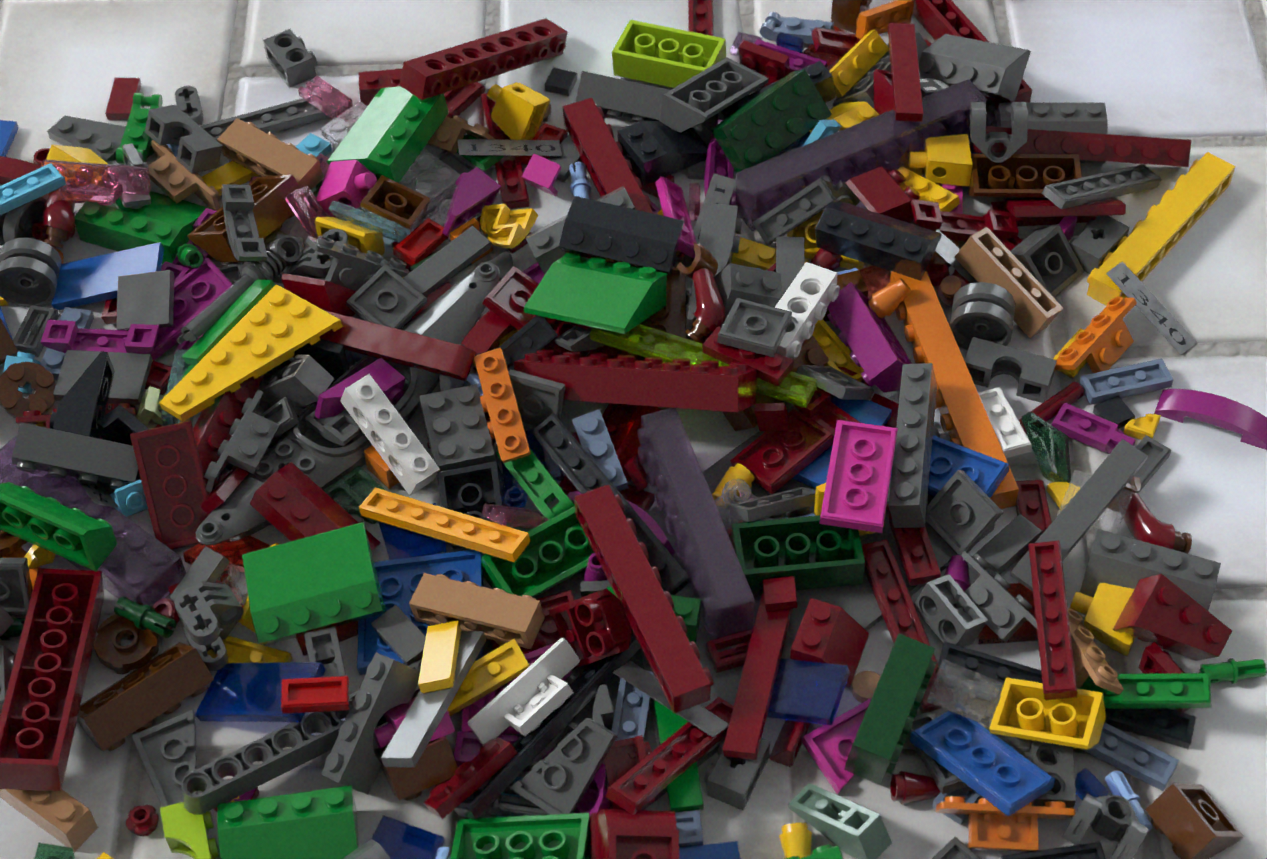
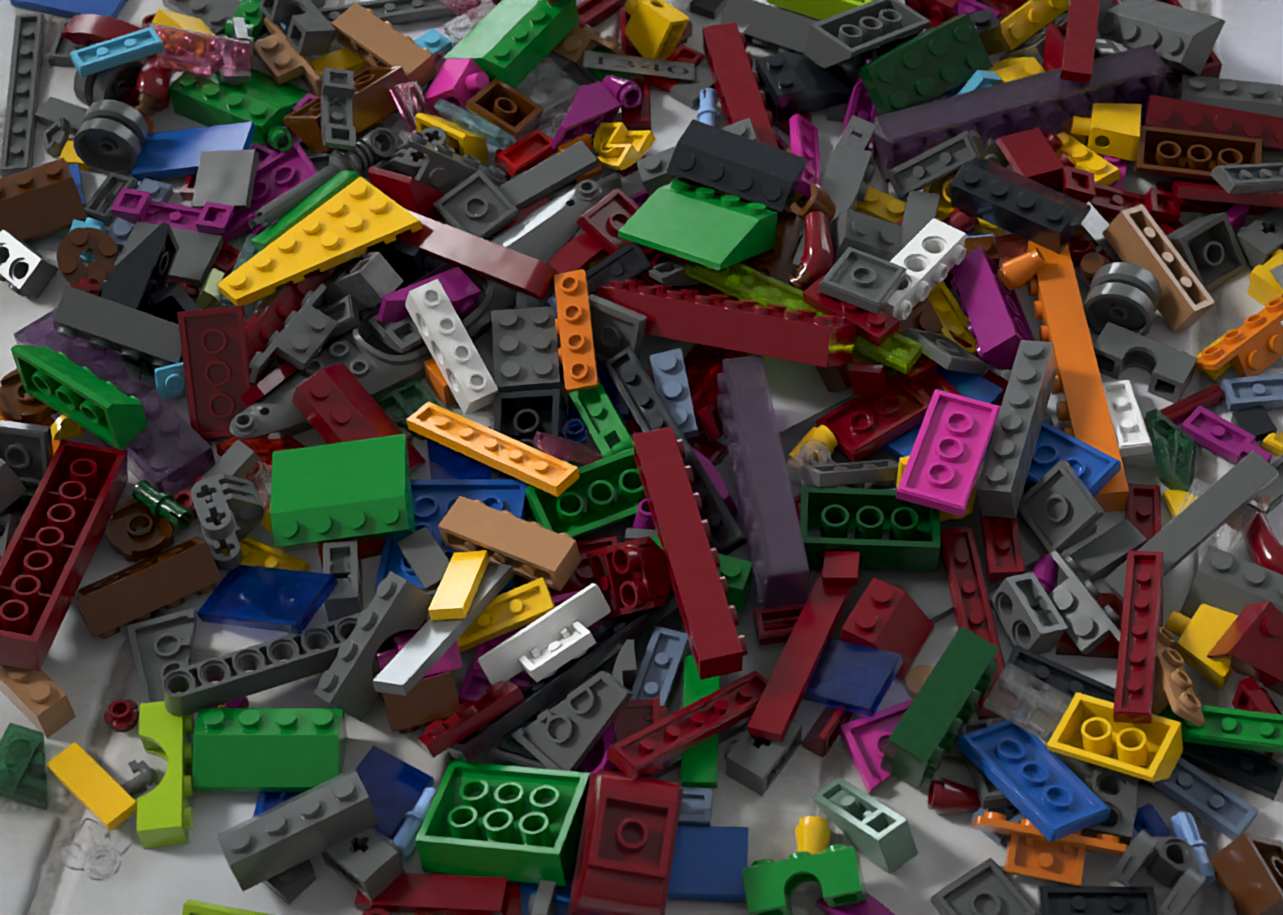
camera: 10 degrees right, 0 degrees up
(315, 694) = (319, 606): red tile -> none
(500, 172) = (624, 90): none -> magenta cone
(542, 174) = (668, 96): dark pink panel -> none
(649, 685) = (679, 645): flat silver sticker -> none
(694, 201) = (828, 142): clear pink tile -> none
(1012, 142) = (1186, 116): dark grey piece -> none

